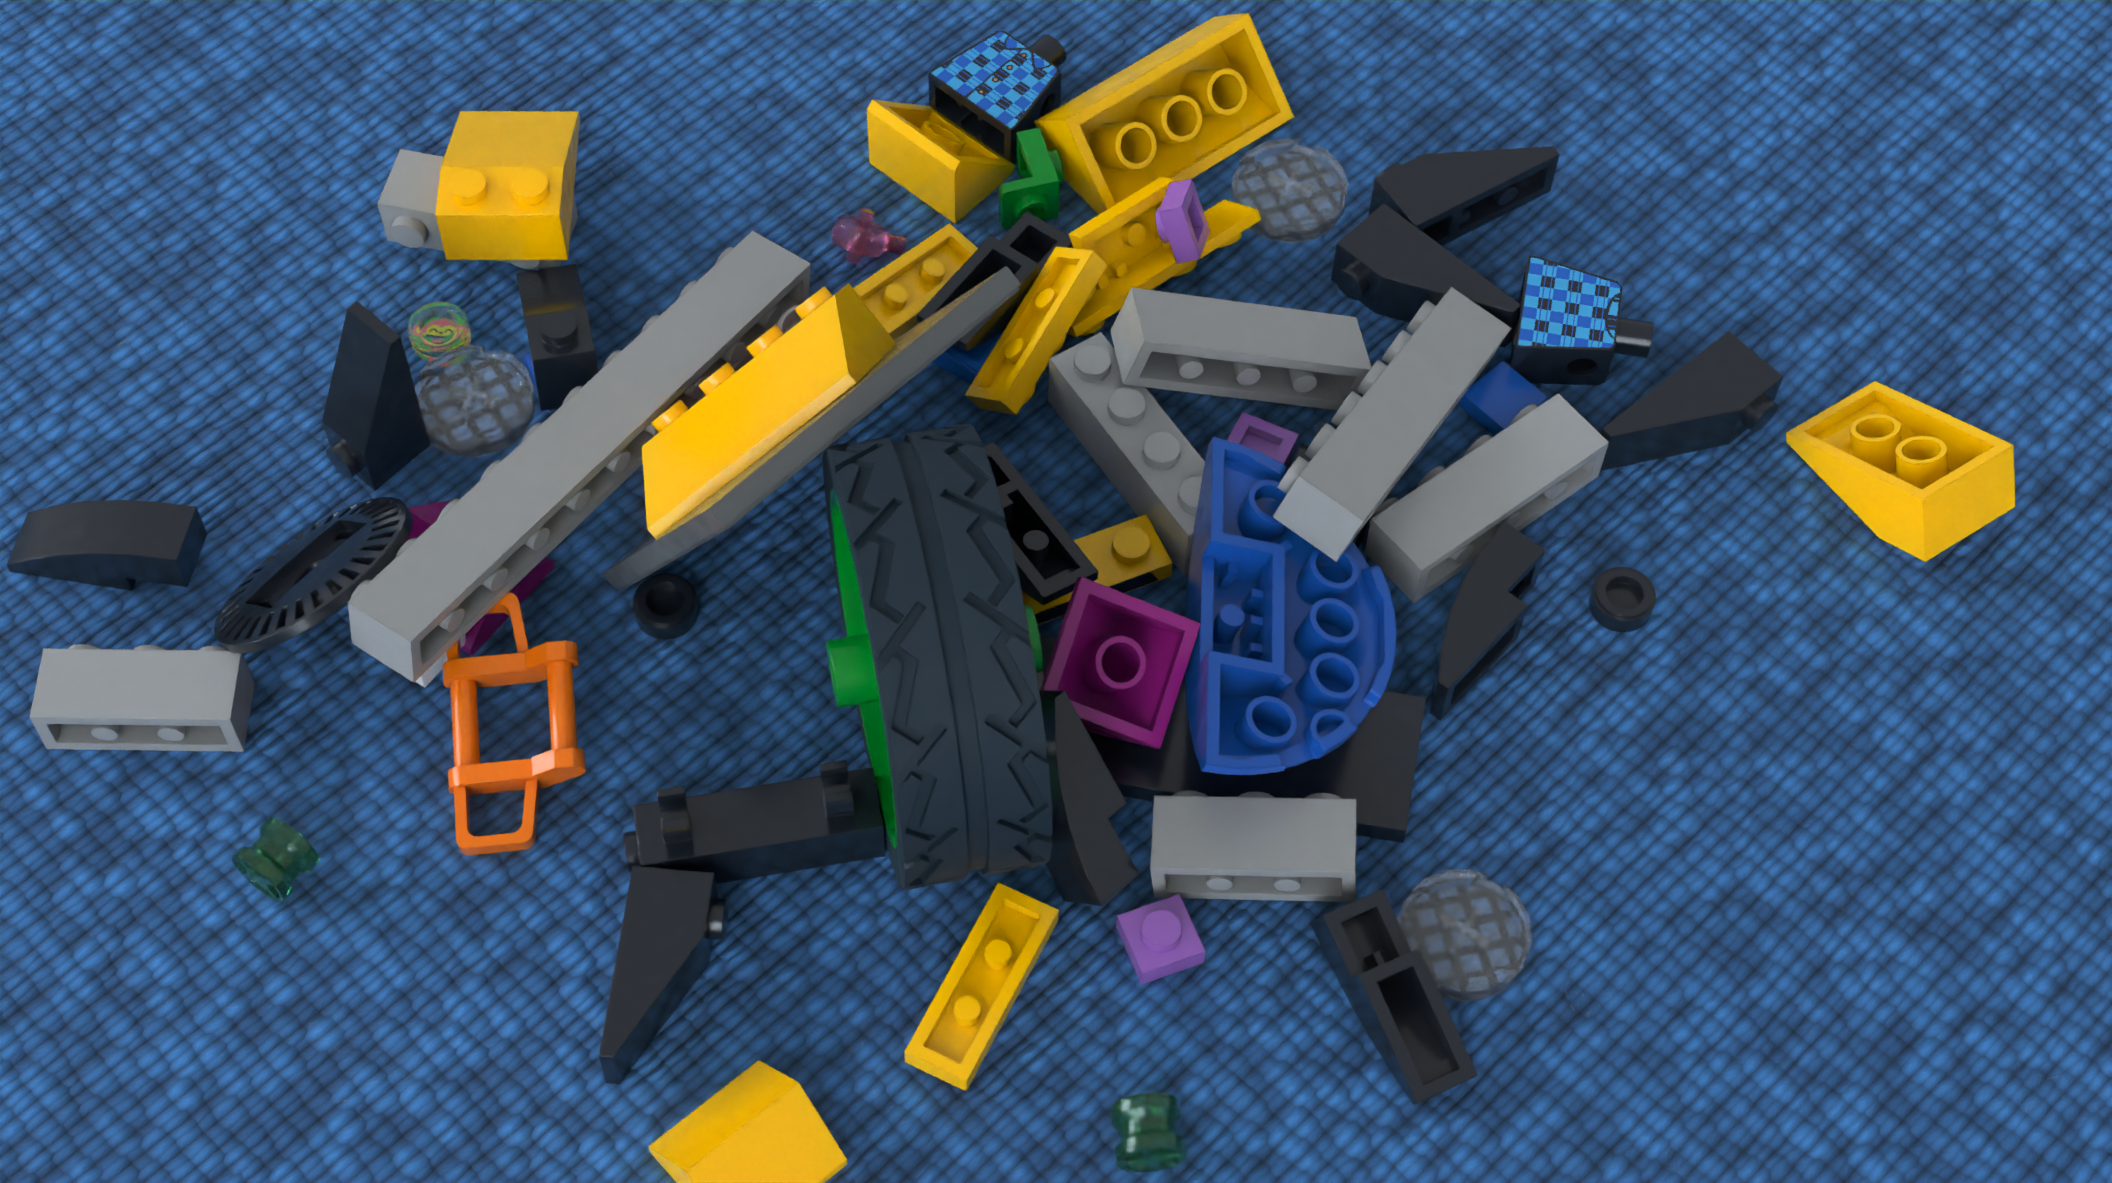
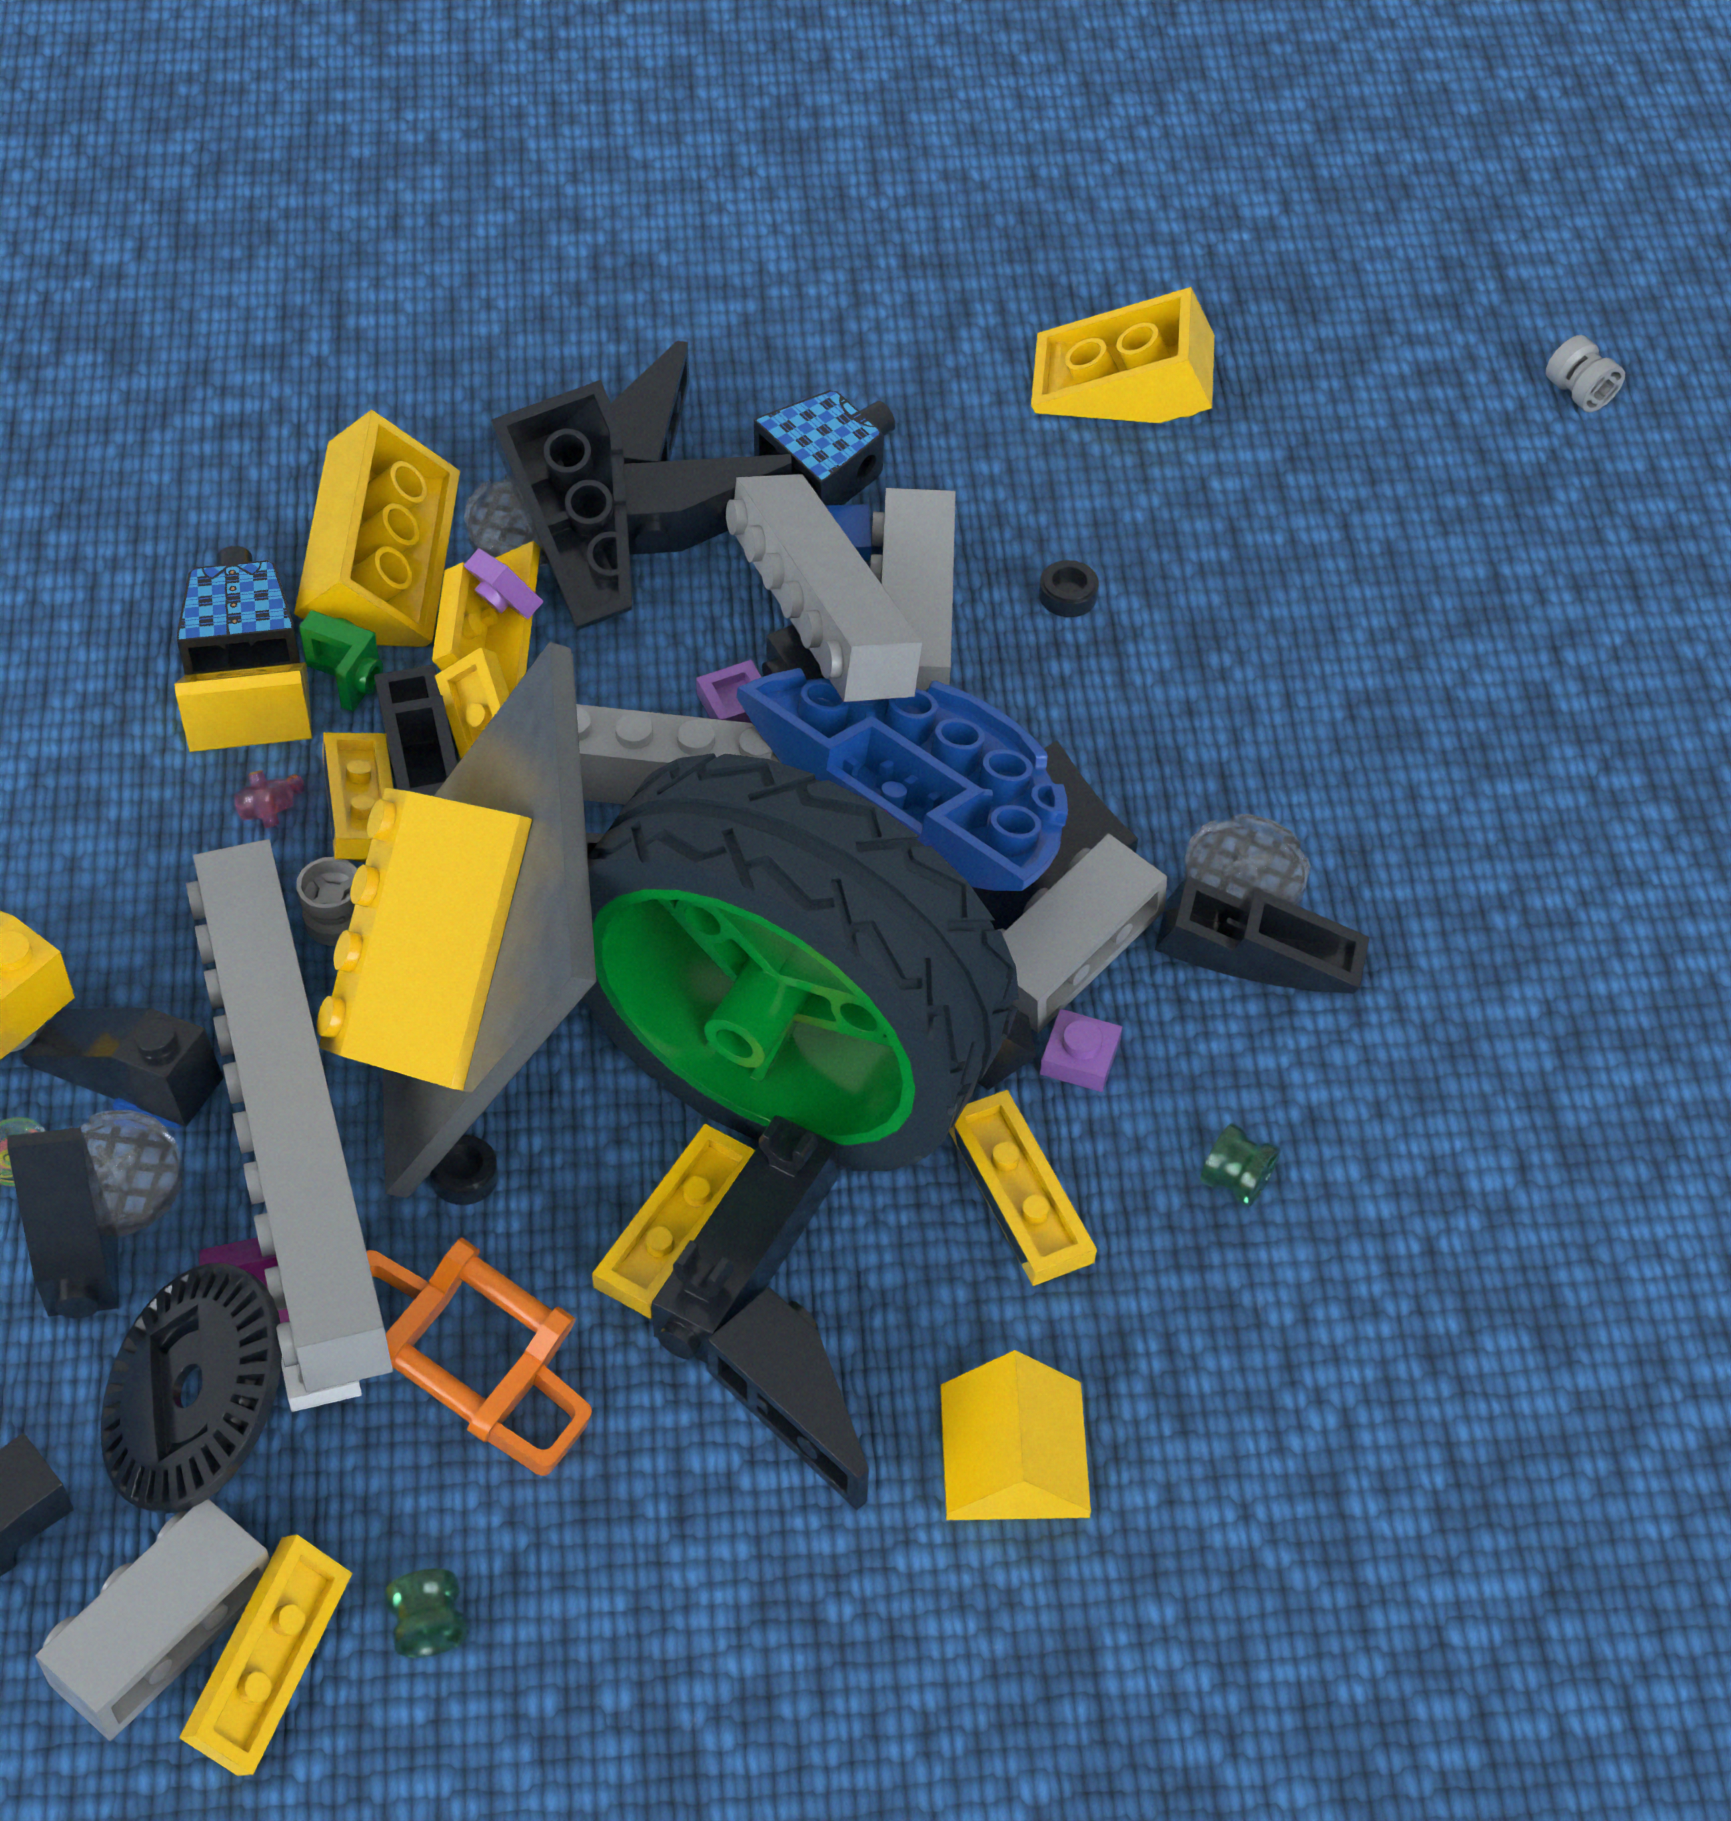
camera: 50 degrees left, 5 degrees down
(167, 787) = (266, 1656): none -> yellow plate
(736, 762) = (669, 1219): none -> yellow plate
(1238, 349) = (659, 631): light grey brick -> none
(1319, 189) = (572, 489): none -> black wedge
(1485, 615) = (1009, 664): black slope -> none
(1696, 407) = (968, 423): black slope -> none

